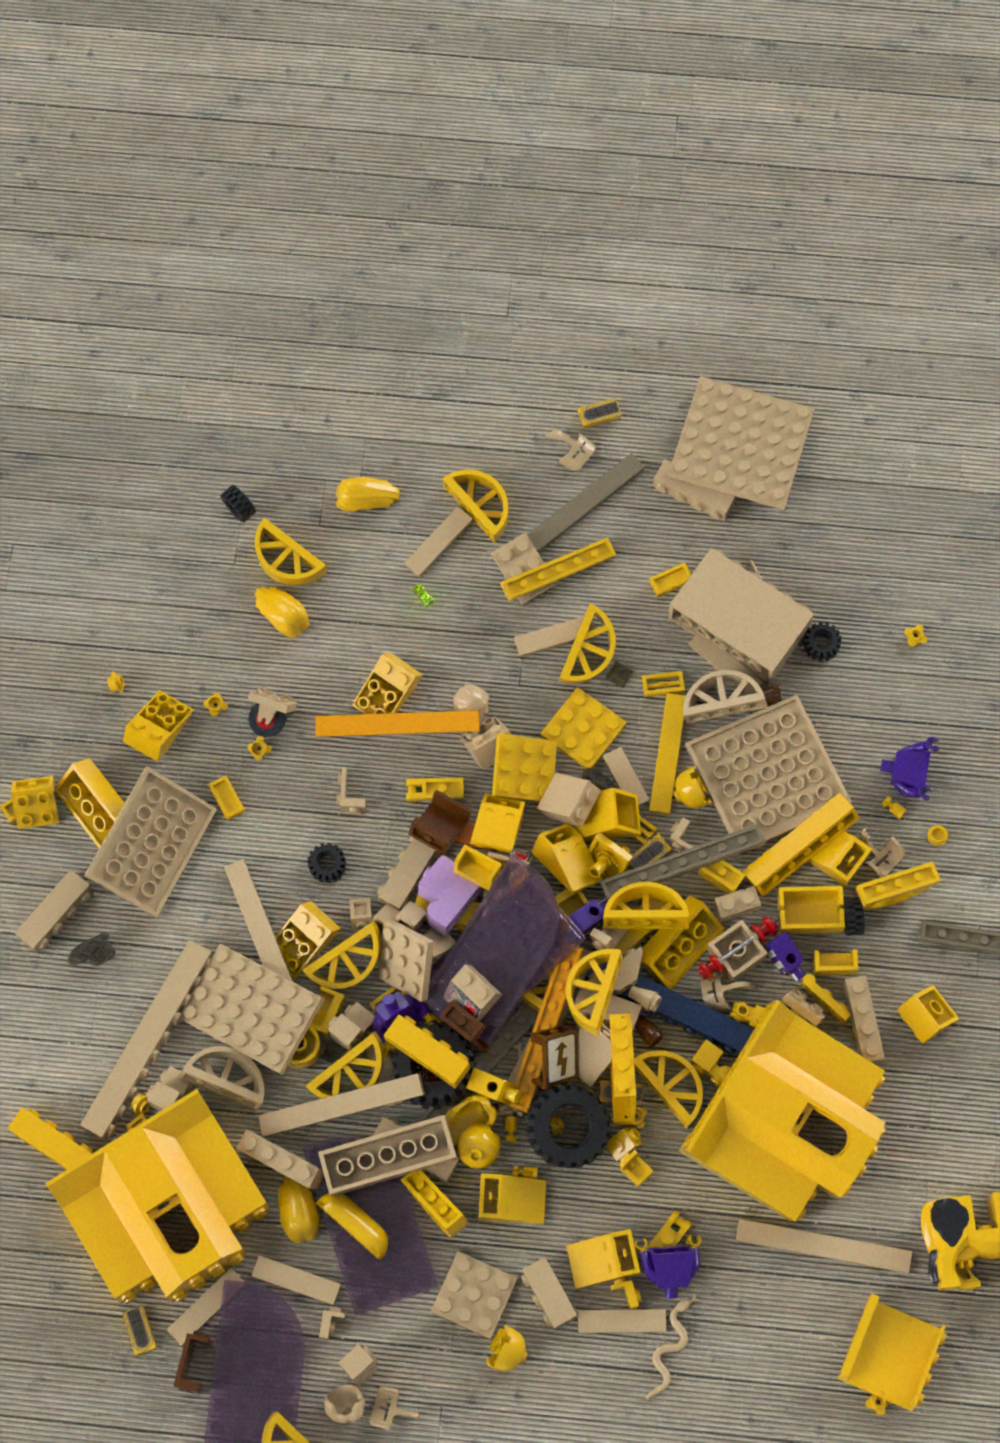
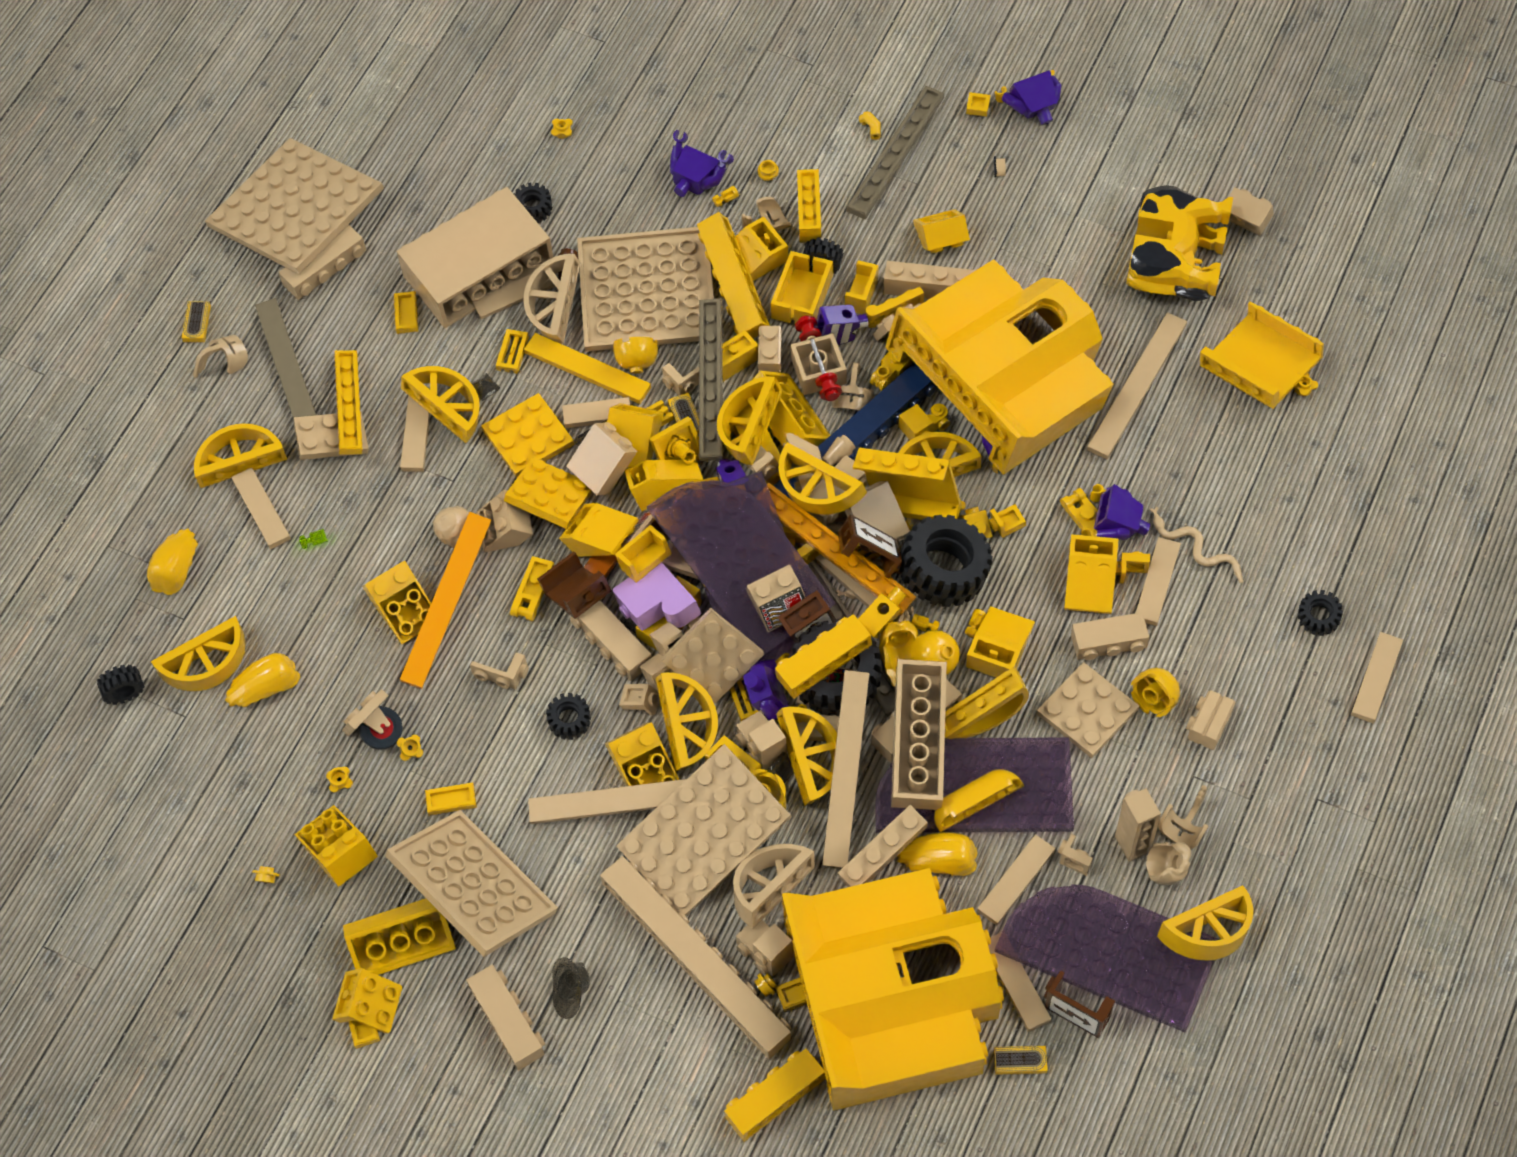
camera: 70 degrees left, 10 degrees down
(496, 1405) = (1210, 720): none -> tan brick

